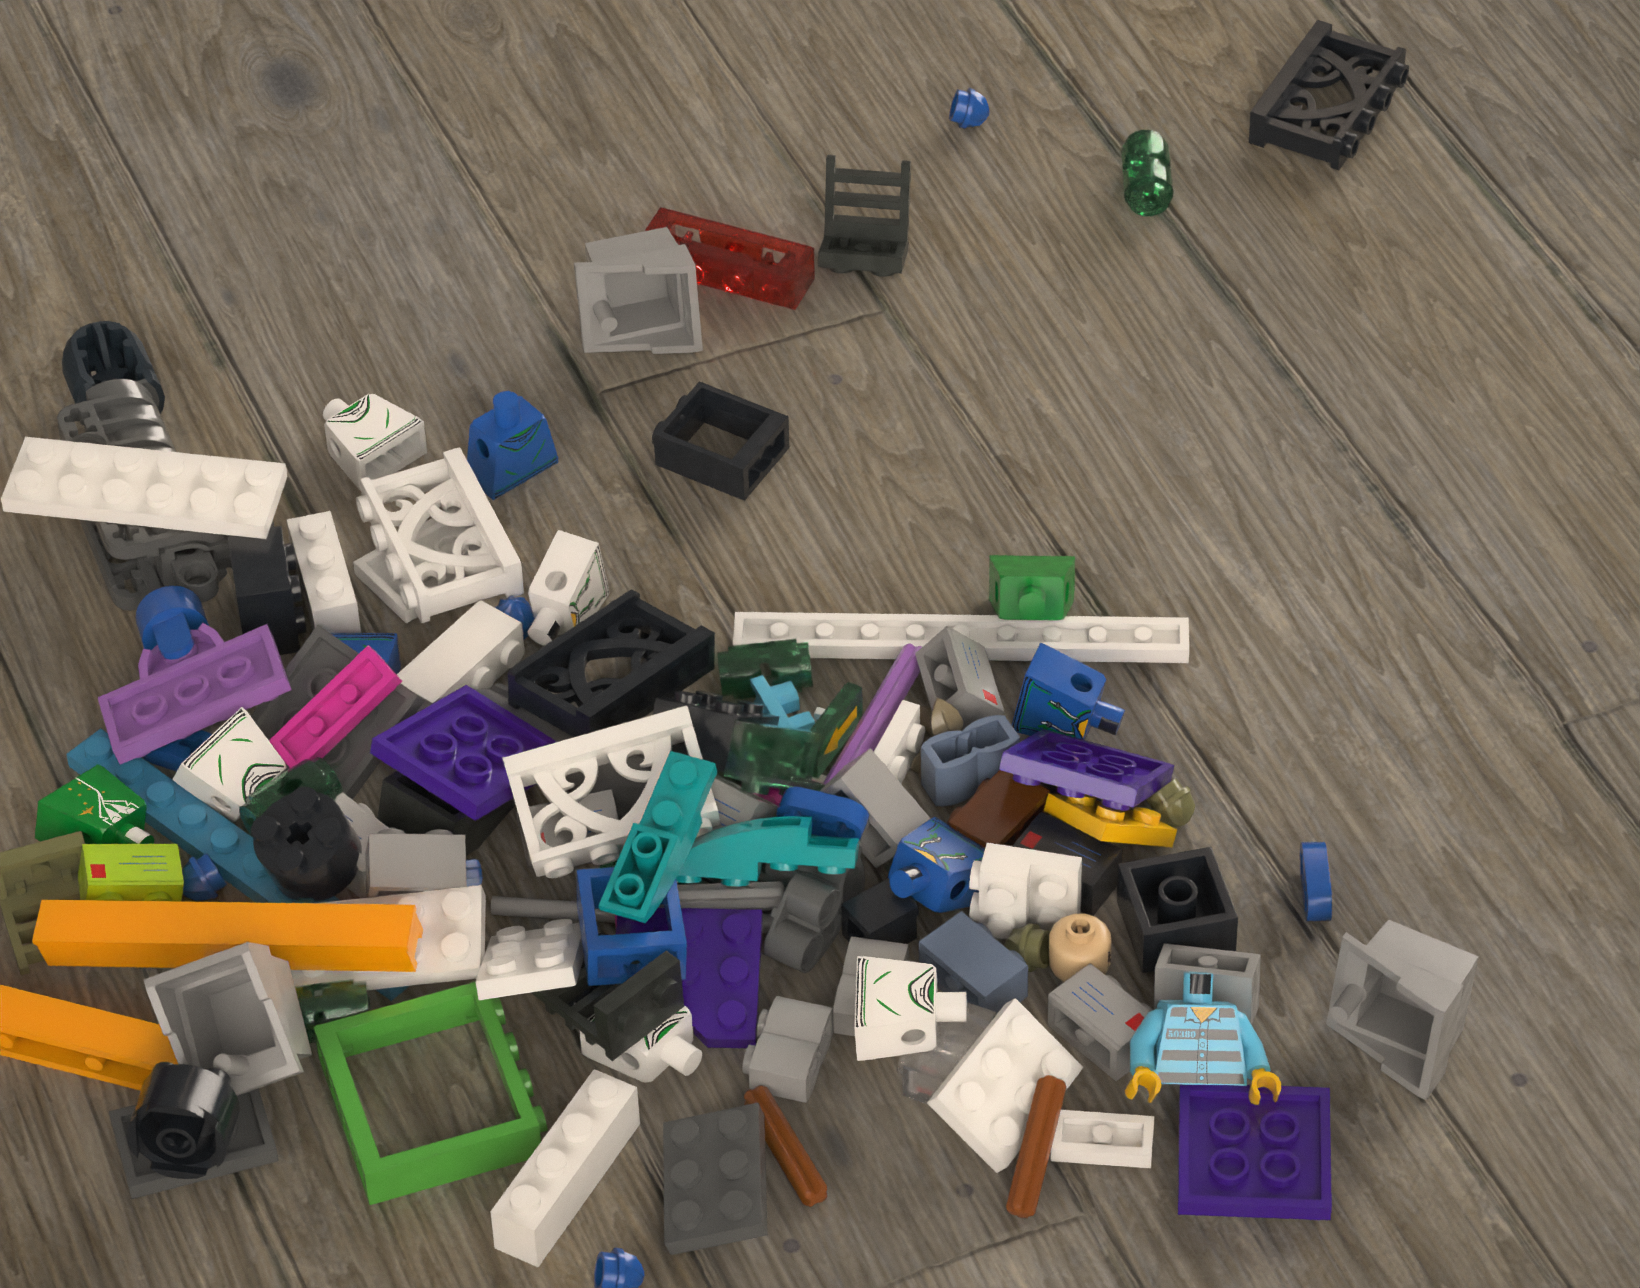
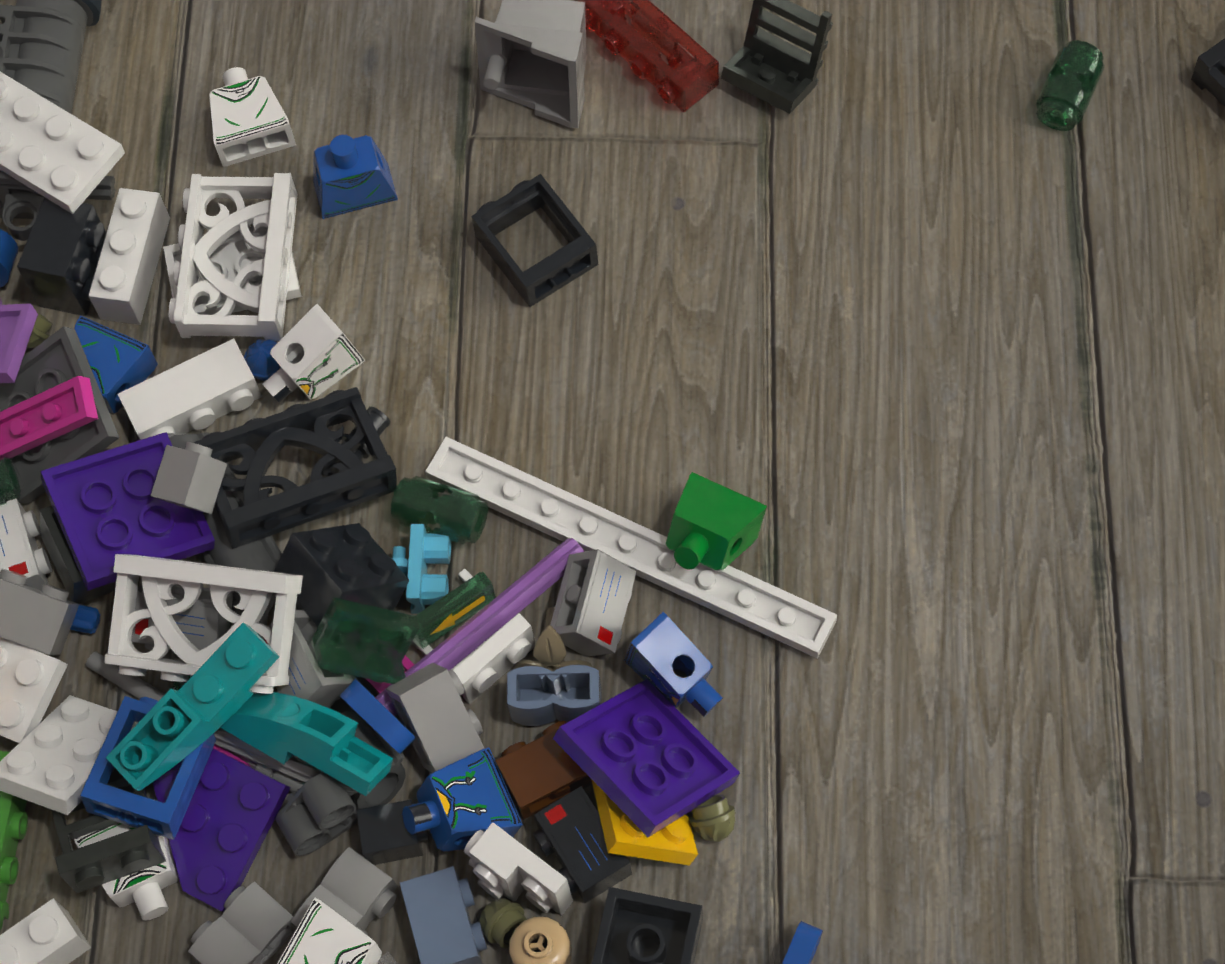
camera: 30 degrees right, 20 degrees up
(527, 692) = (189, 477): none -> light grey brick

